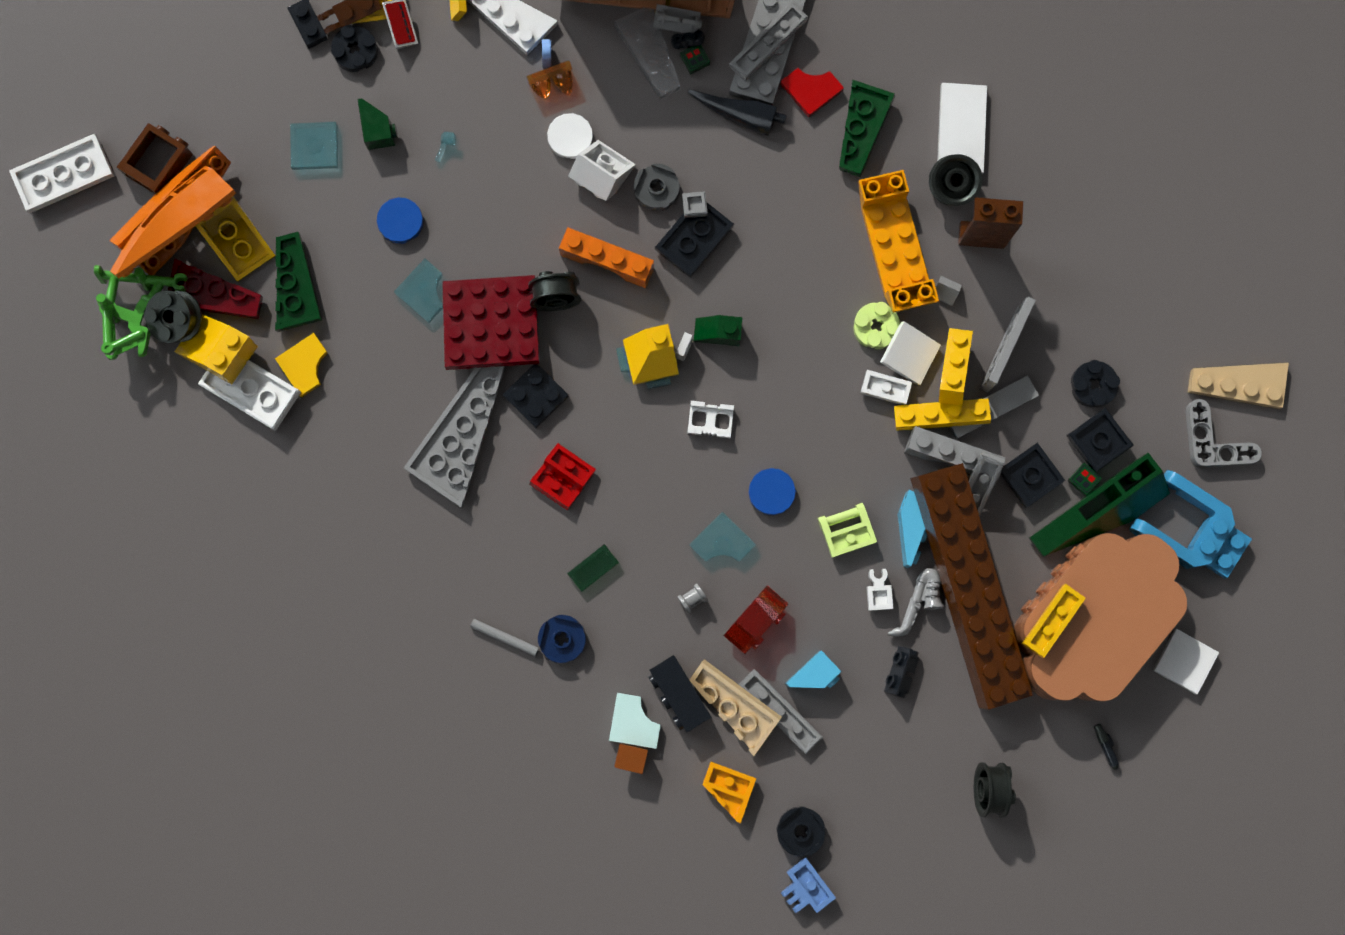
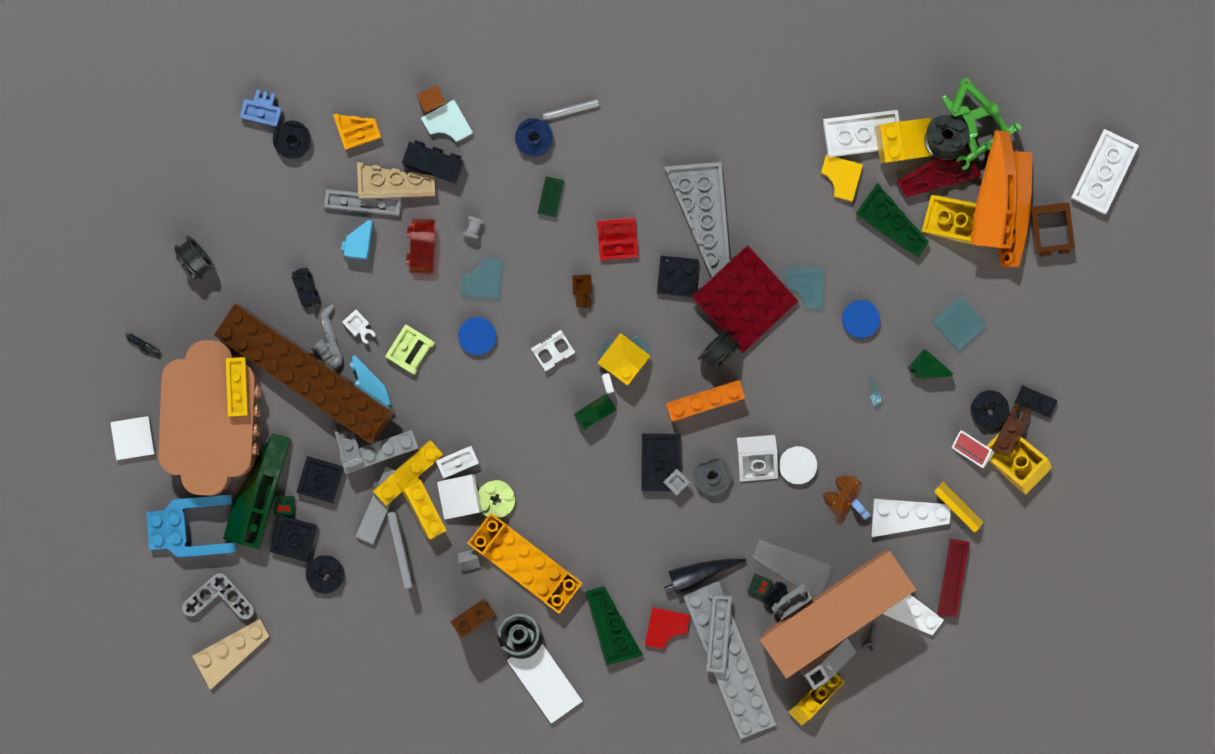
camera: 145 degrees right, 5 degrees up
(634, 454) = (582, 287): none -> reddish brown plate

